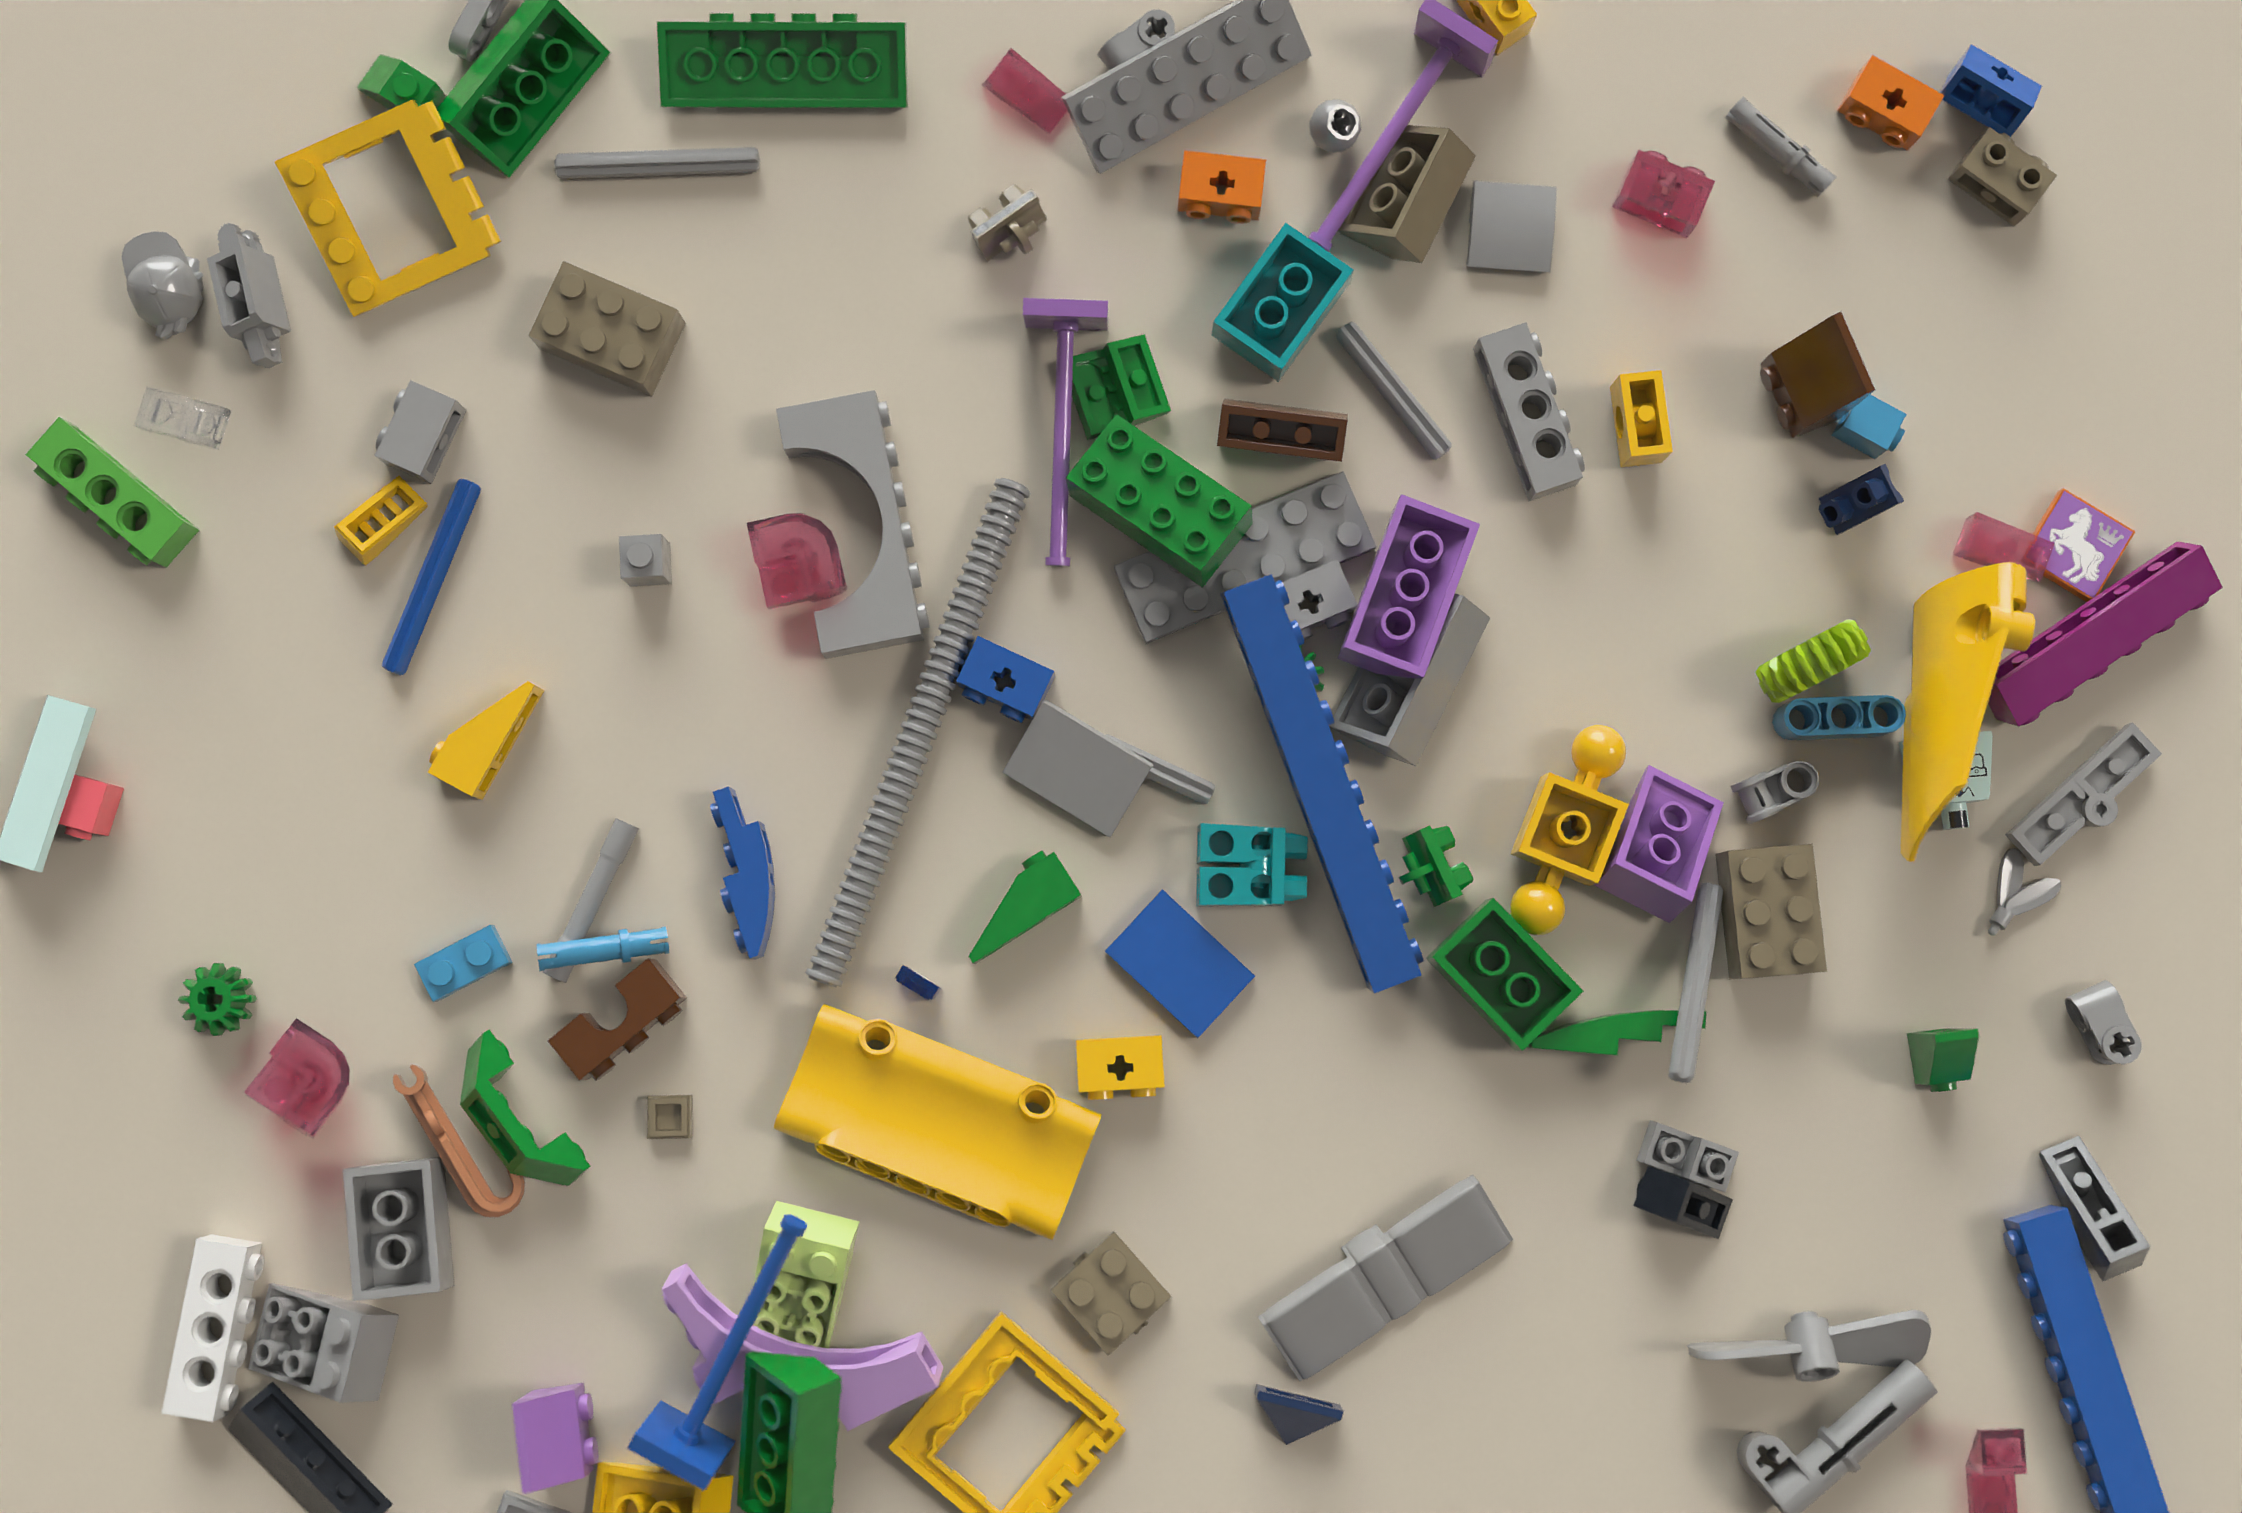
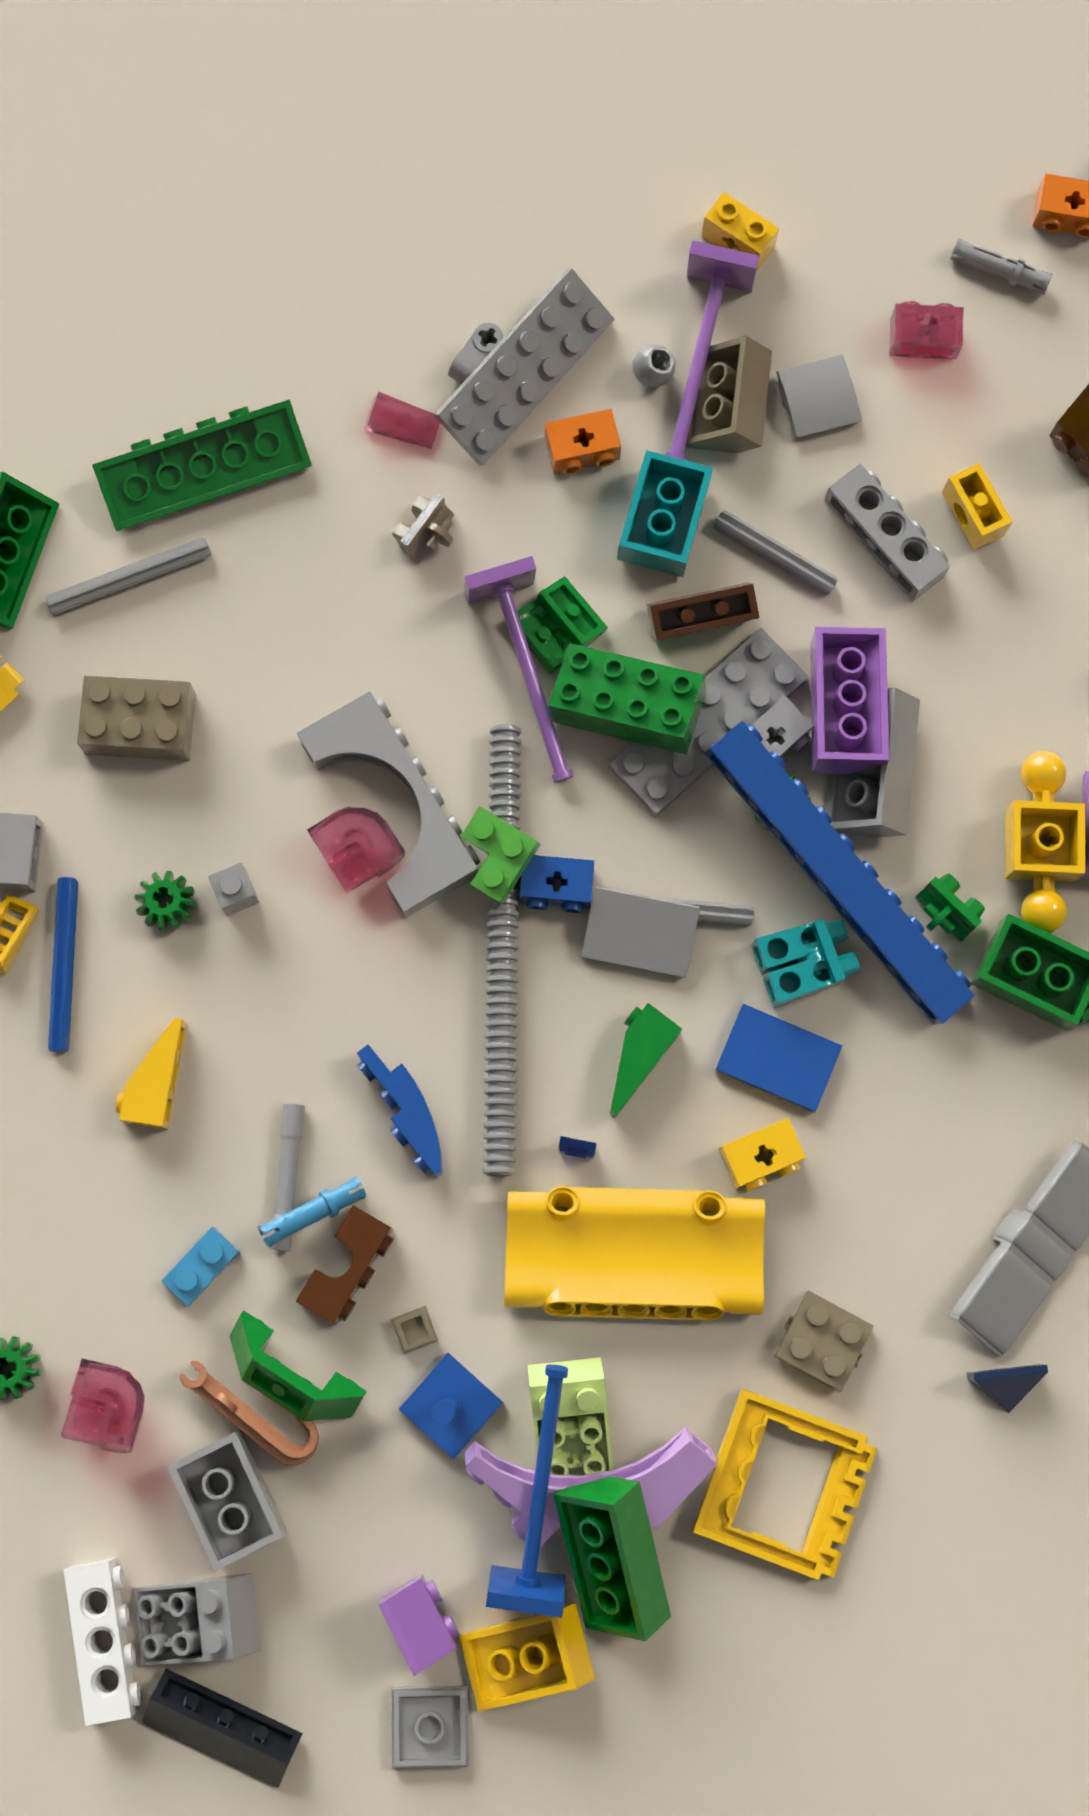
camera: 20 degrees left, 5 degrees down
(568, 530) = (154, 911): none -> green gear
(675, 1215) = (450, 1405): none -> blue tile
(960, 630) = (507, 850): none -> bright green plate

